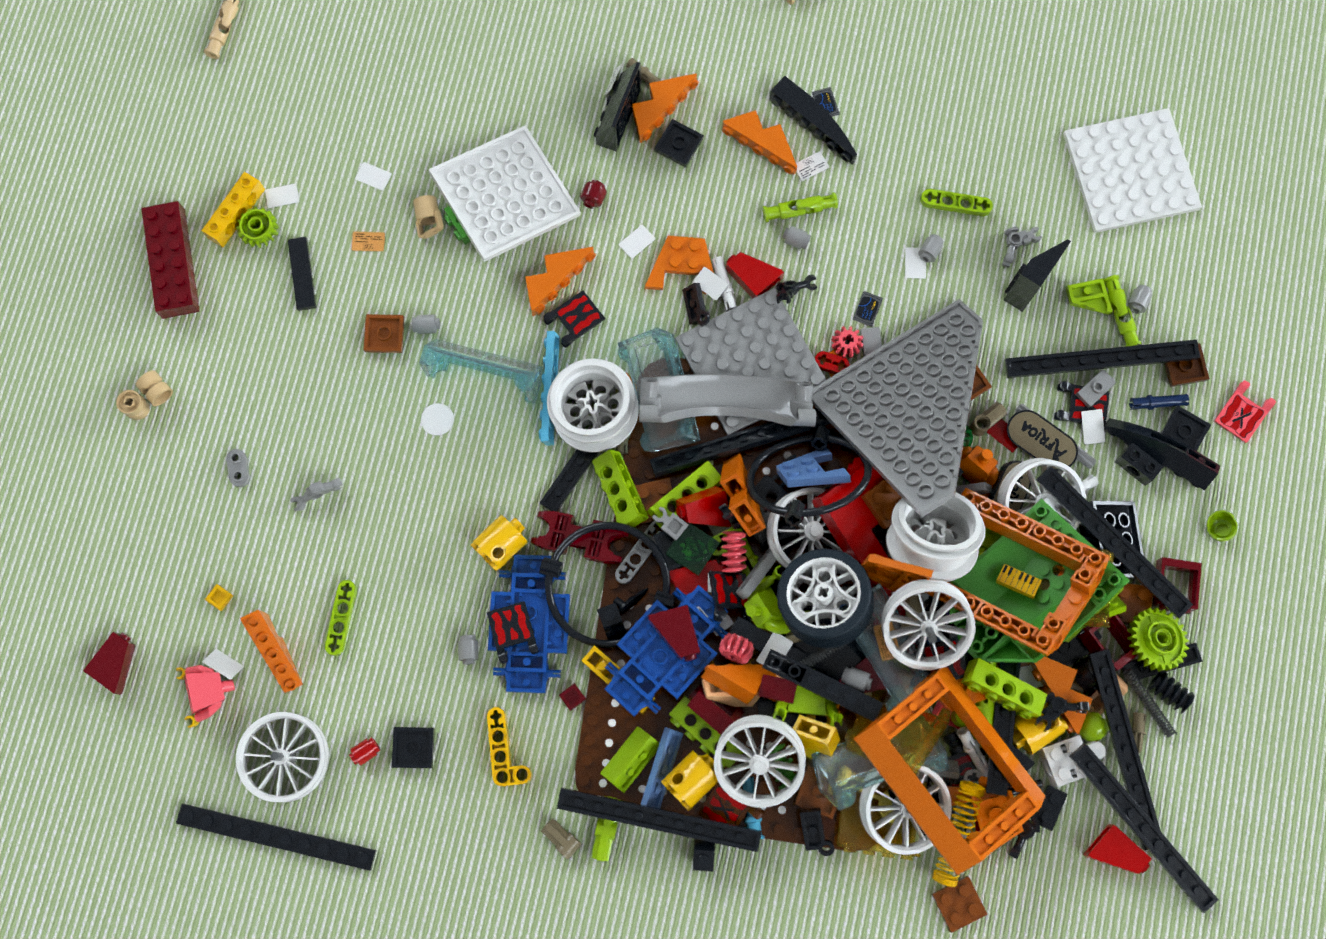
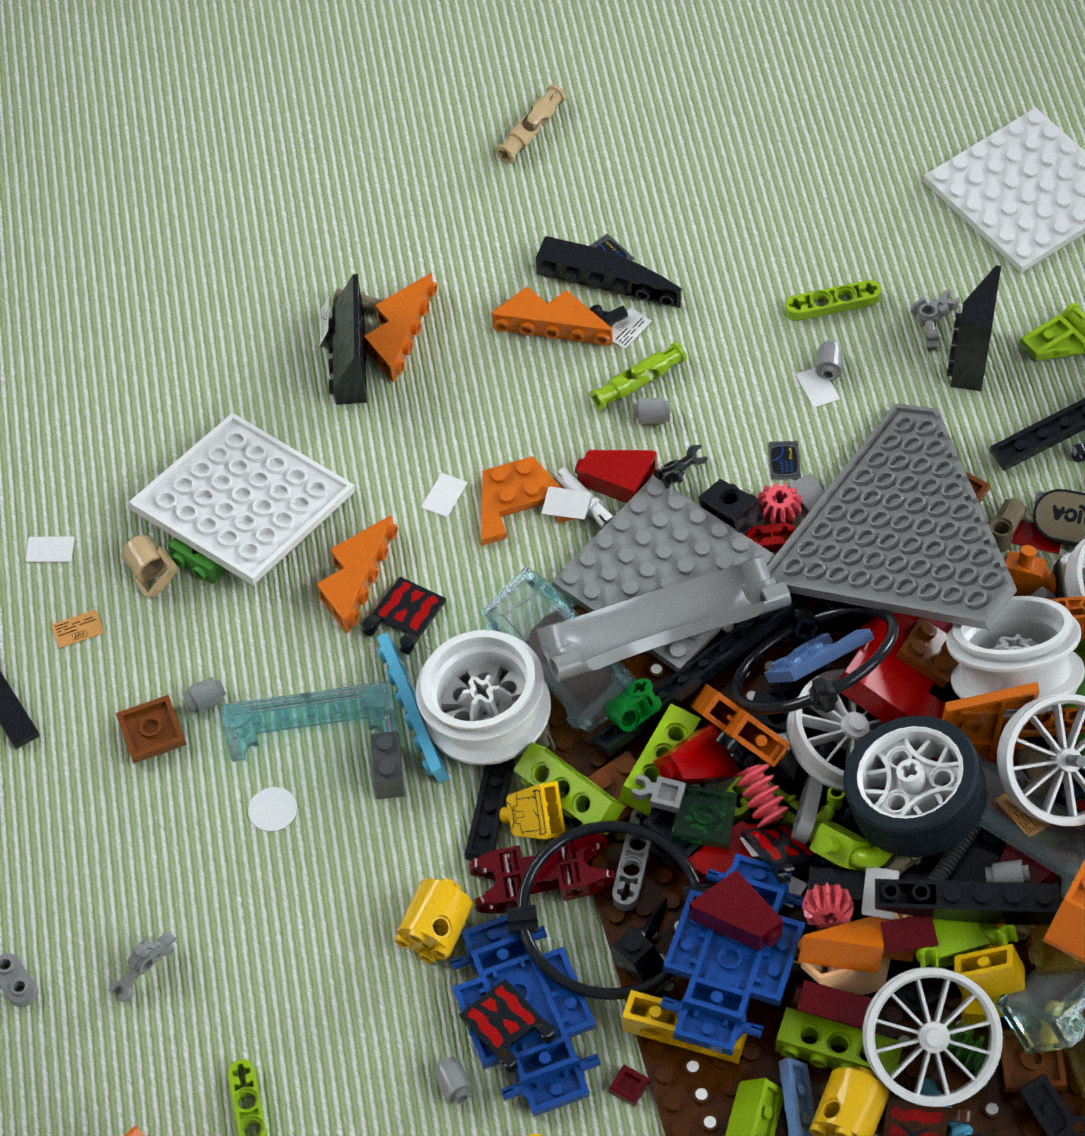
camera: 20 degrees left, 20 degrees down
(517, 422) = (387, 765): none -> dark grey brick
(592, 497) = (535, 812): none -> yellow torso
(593, 194) = (361, 457): dark red head -> none
(679, 143) = (445, 361): black plate -> none
(681, 452) = (633, 706): none -> green piece
(695, 305) = (559, 535): black hinge -> none
(799, 153) = (612, 316): none -> black arm
(816, 341) = (732, 505): none -> black brick

